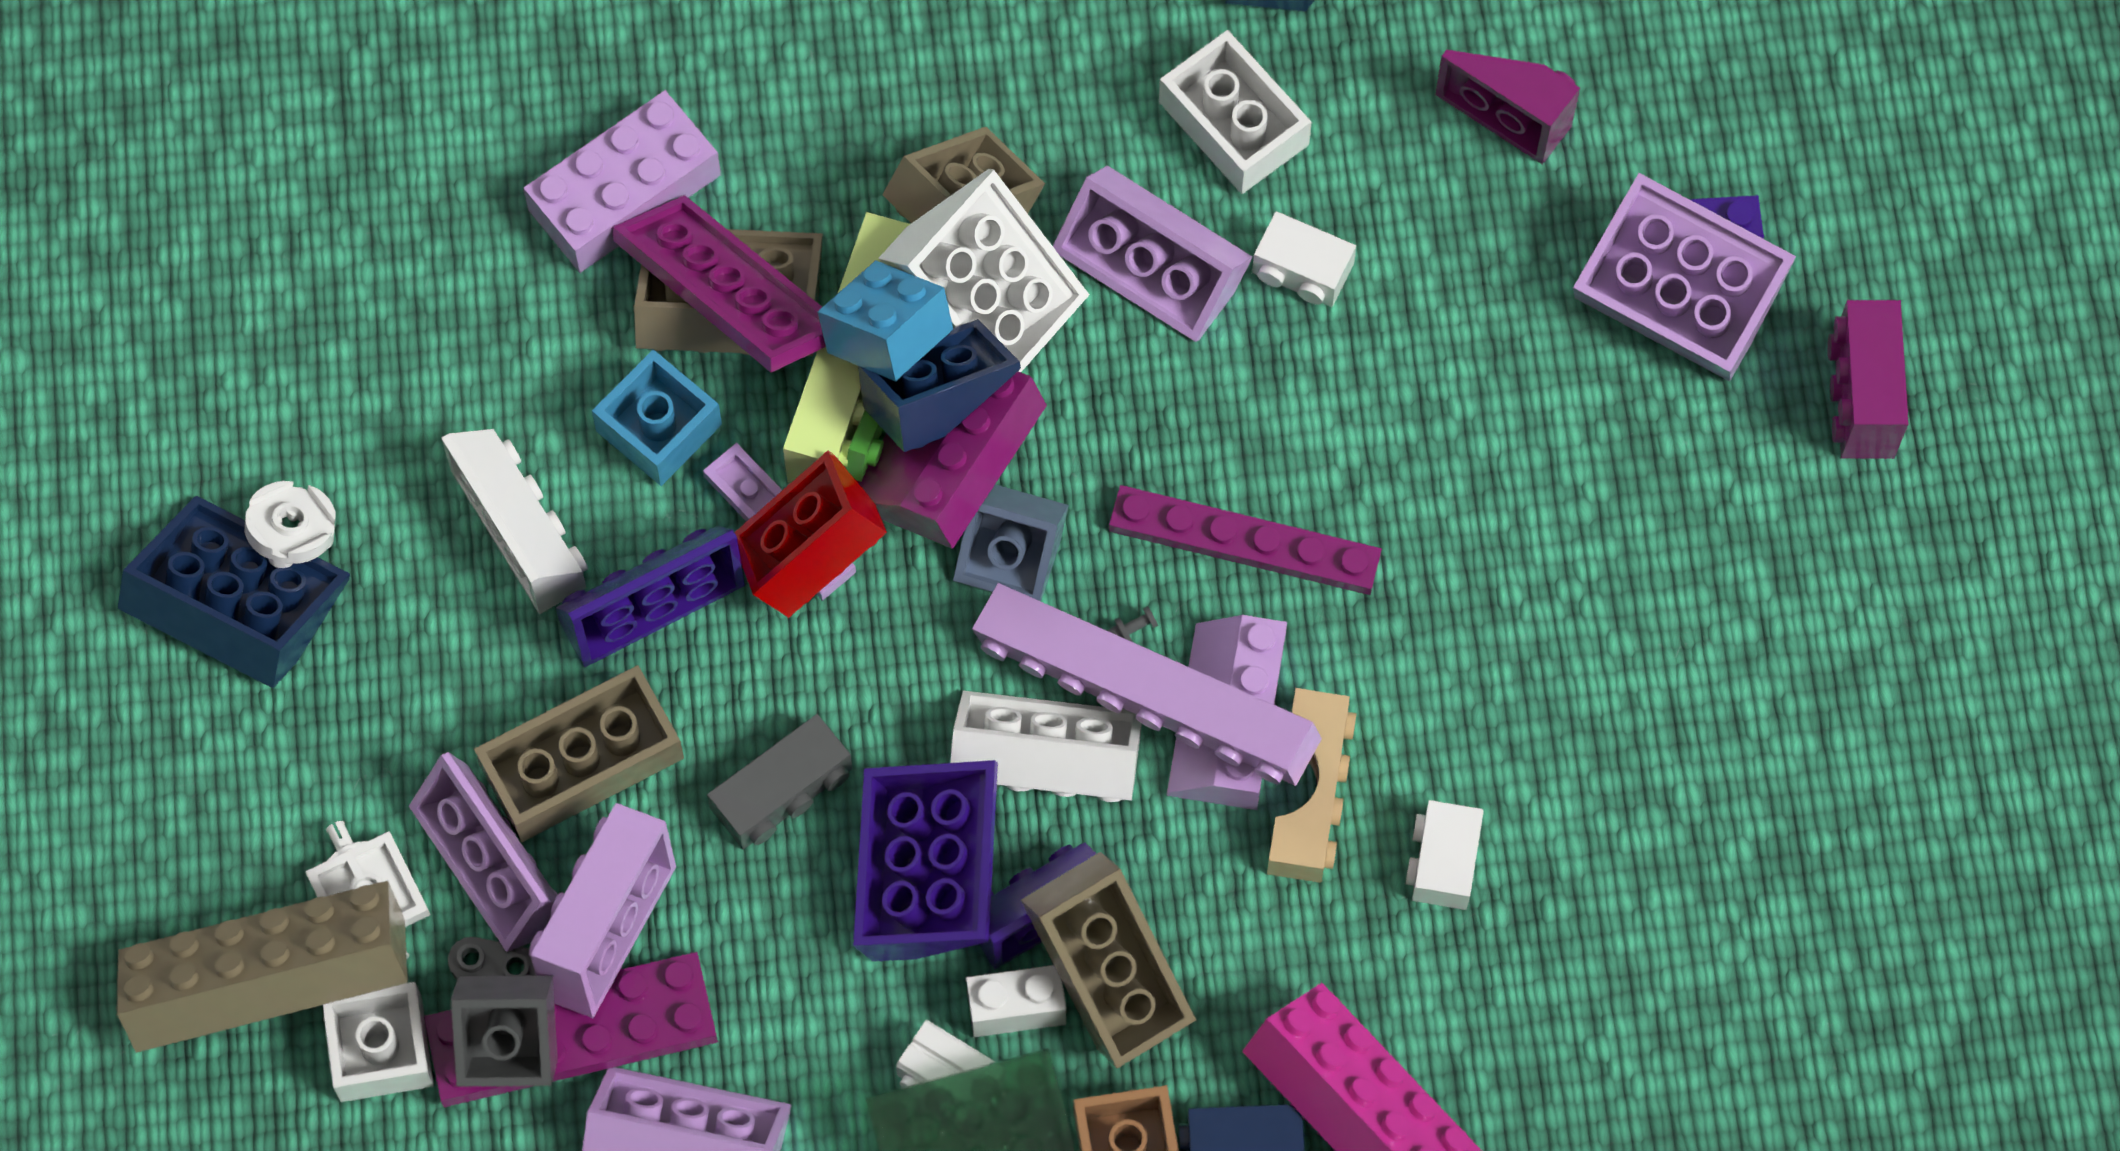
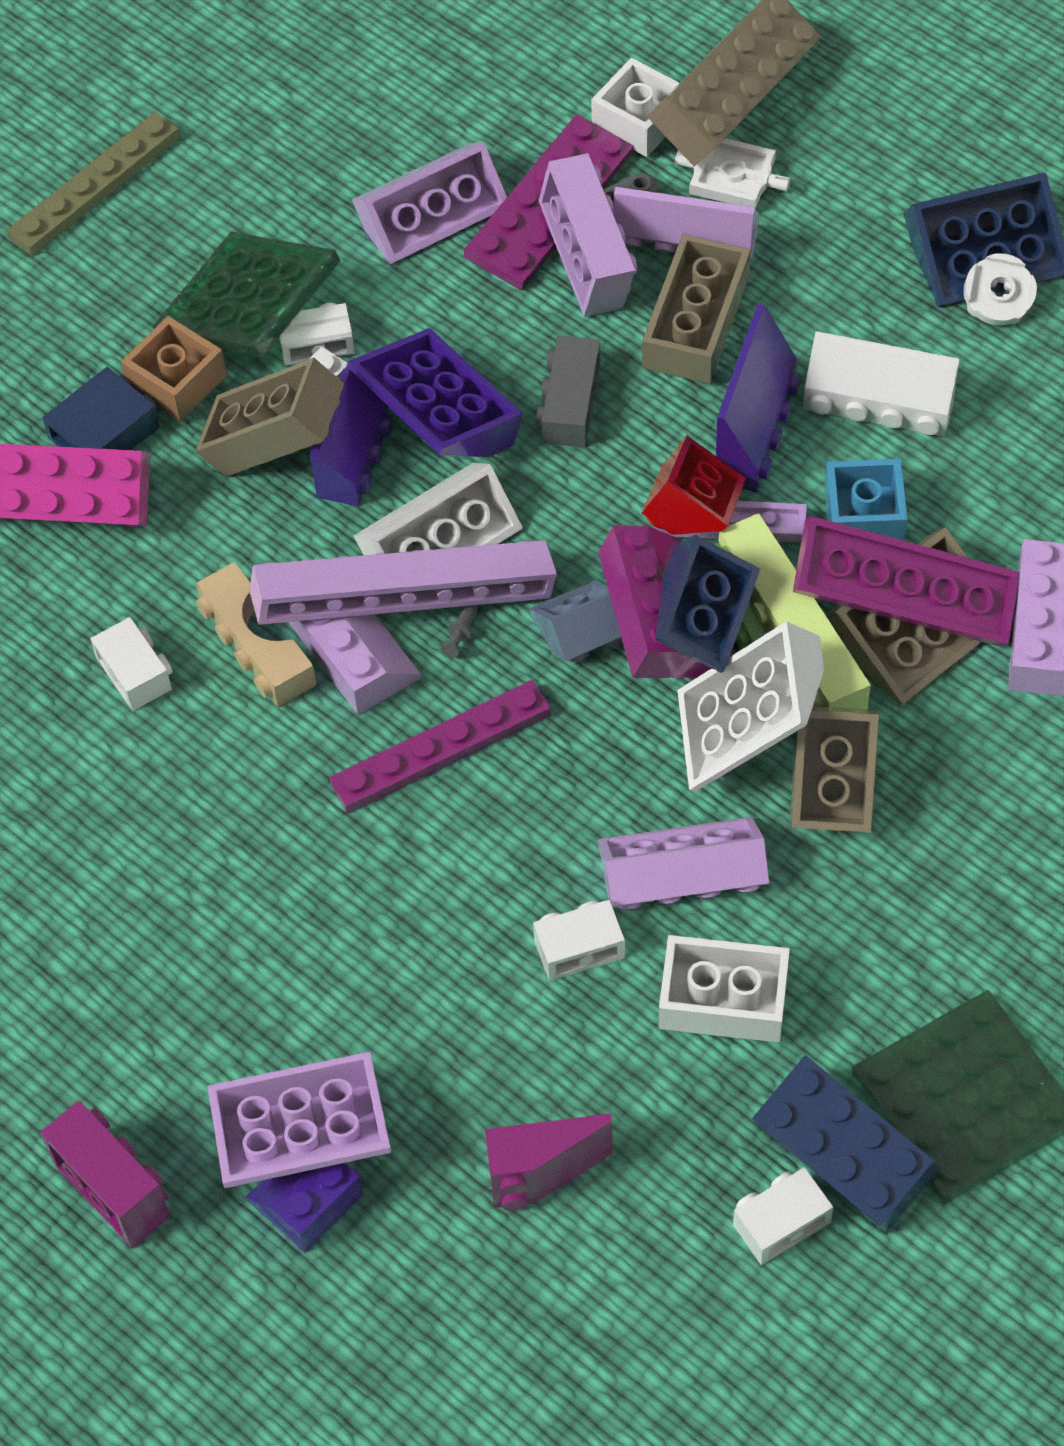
camera: 140 degrees right, 10 degrees down
(504, 1030) = (568, 130): dark grey brick -> none
(885, 320) = (767, 591): dark azure brick -> none

